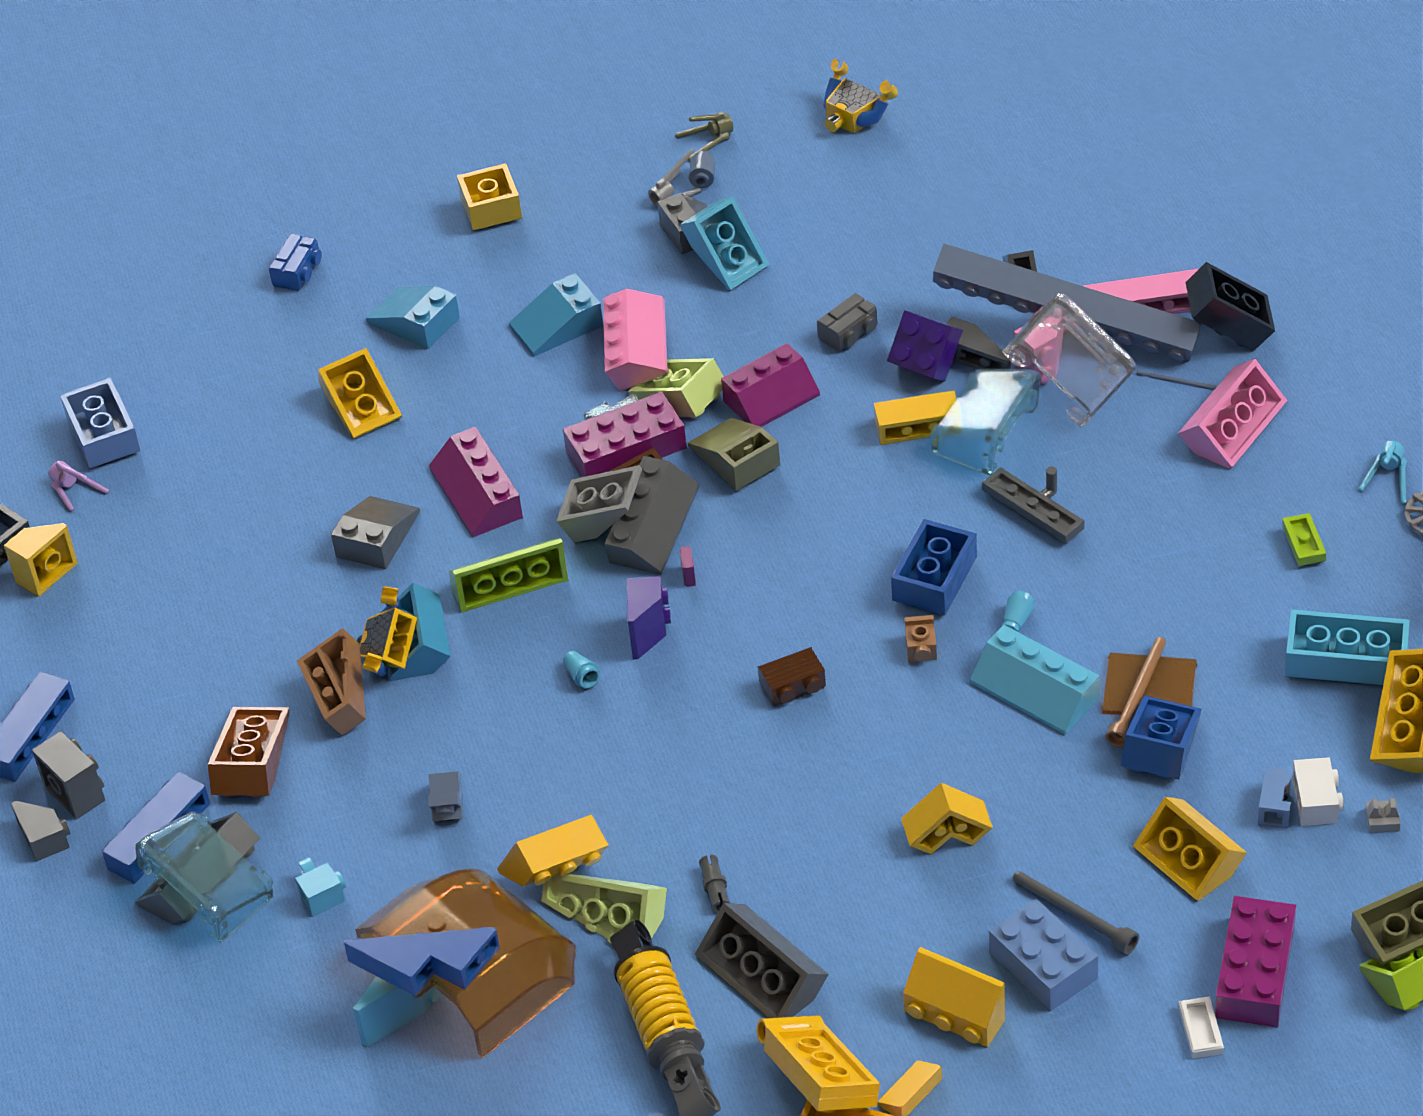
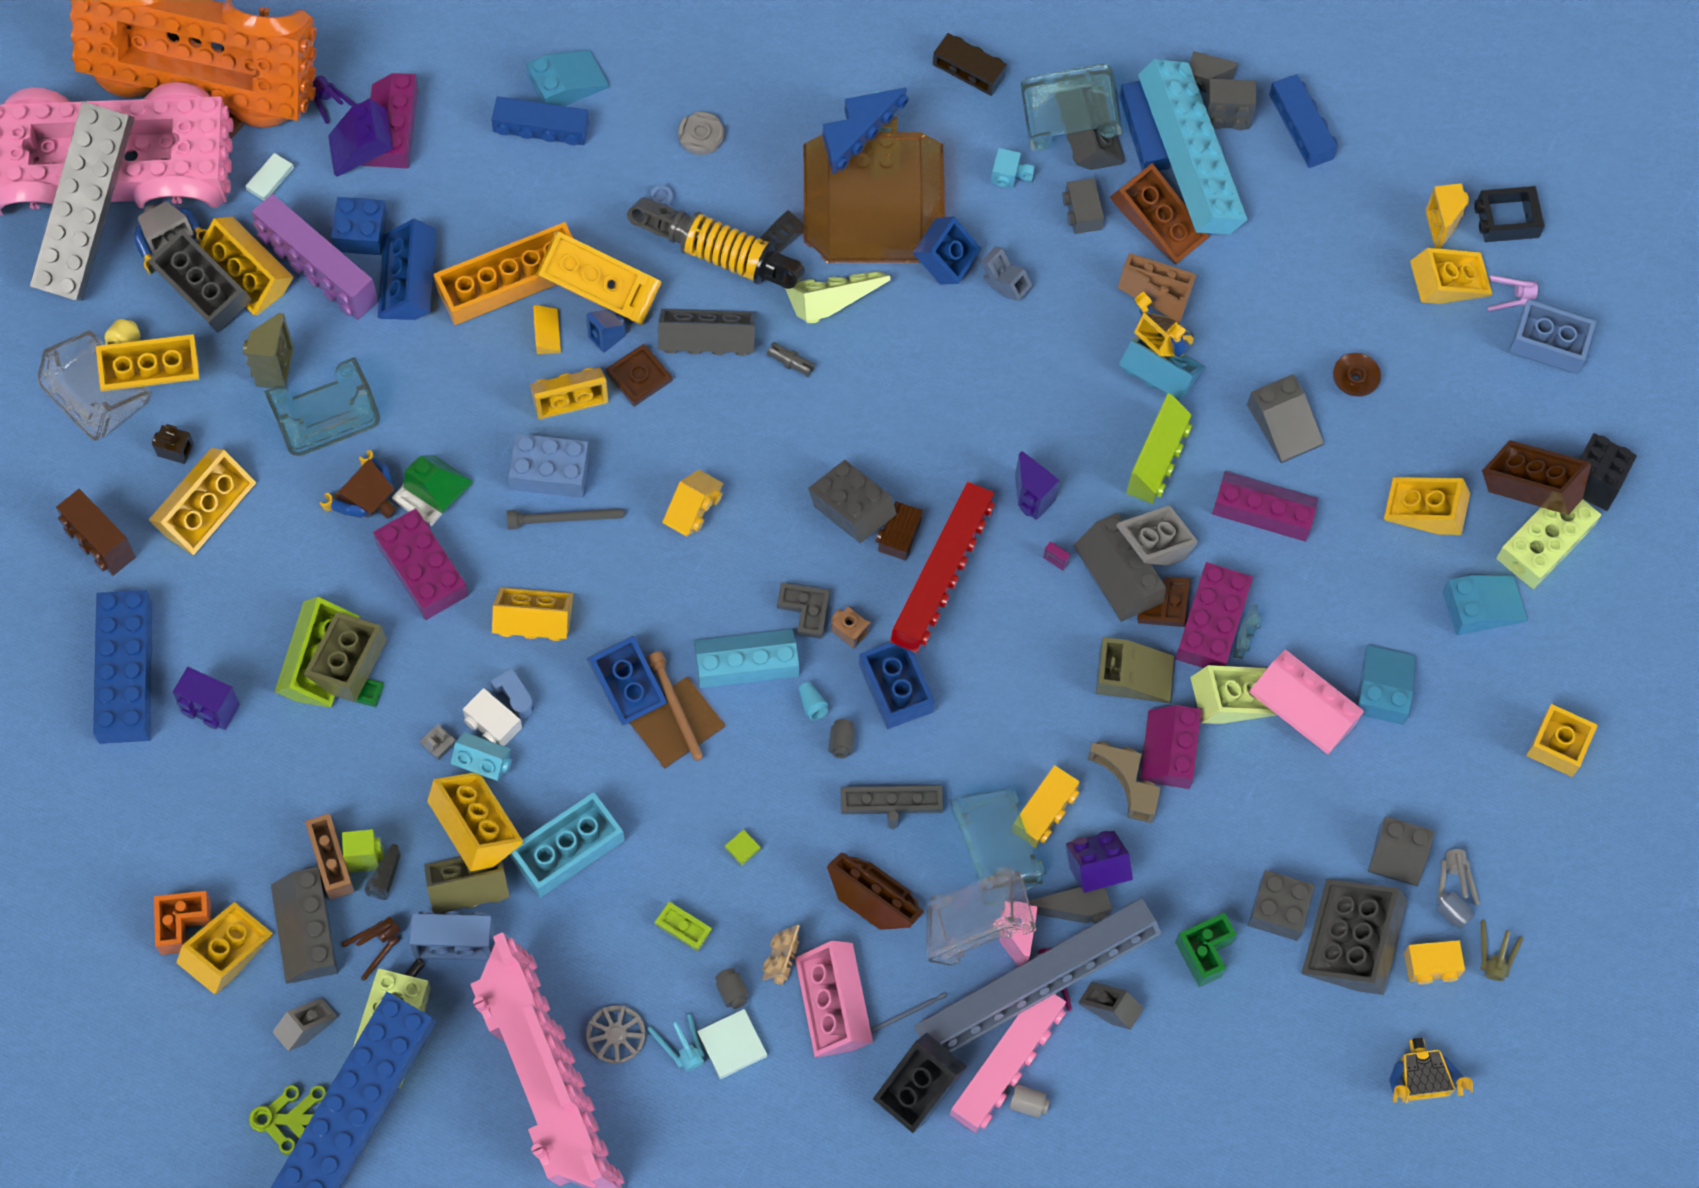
camera: 125 degrees right, 20 degrees up
(106, 525) = (1450, 276): none -> yellow slope
(149, 763) = (1192, 147): none -> medium azure brick
(214, 309) = (1607, 472): none -> black brick
(222, 1008) = (969, 64): none -> dark brown brick
(265, 328) = (1537, 477): none -> reddish brown slope
(277, 513) = (1360, 366): none -> reddish brown dish
(295, 262) = (1617, 573): blue brick -> none
(300, 804) = (1084, 206): none -> dark grey brick
(307, 313) = (1546, 542): none -> yellowish green brick
(472, 844) = (947, 250): none -> blue brick
(554, 852) = (890, 280): yellow slope -> none
(582, 669) = (1034, 429): medium azure cone -> none
(590, 1008) = (782, 223): none -> clear smoke slope
(725, 242) = (1346, 837): medium azure slope -> none
(757, 154) = (1434, 962): none -> yellow brick
(792, 198) = (1355, 935): none -> dark grey slope
(796, 607) = (942, 568): none -> red brick
(809, 711) = (852, 501): none -> dark grey brick
(821, 247) = (1281, 905): none -> dark grey brick
(834, 375) = (1124, 764): none -> dark tan arch
(847, 322) = (1185, 851): dark grey brick -> none
(858, 1027) = (605, 328): none -> blue slope
(867, 981) = (639, 375): none -> reddish brown tile
(911, 259) = (1200, 948): none -> green brick
(935, 680) = (810, 602): none -> dark grey plate
(1023, 570) = (842, 738): none -> dark grey brick
(1119, 445) = (873, 893): none -> reddish brown wedge
(1151, 263) = (1029, 1101): none -> light grey brick
(1166, 1026) = (435, 482): none -> green slope
(1193, 561) = (742, 847): none -> lime tile
(1244, 459) = (784, 947): none -> tan hinge
(1248, 1061) = (364, 491): none -> reddish brown torso
(1308, 474) = (731, 988): none -> dark grey brick
(1346, 447) = (732, 1044): none -> light aqua tile
(1357, 764) = (481, 756): none -> medium azure brick

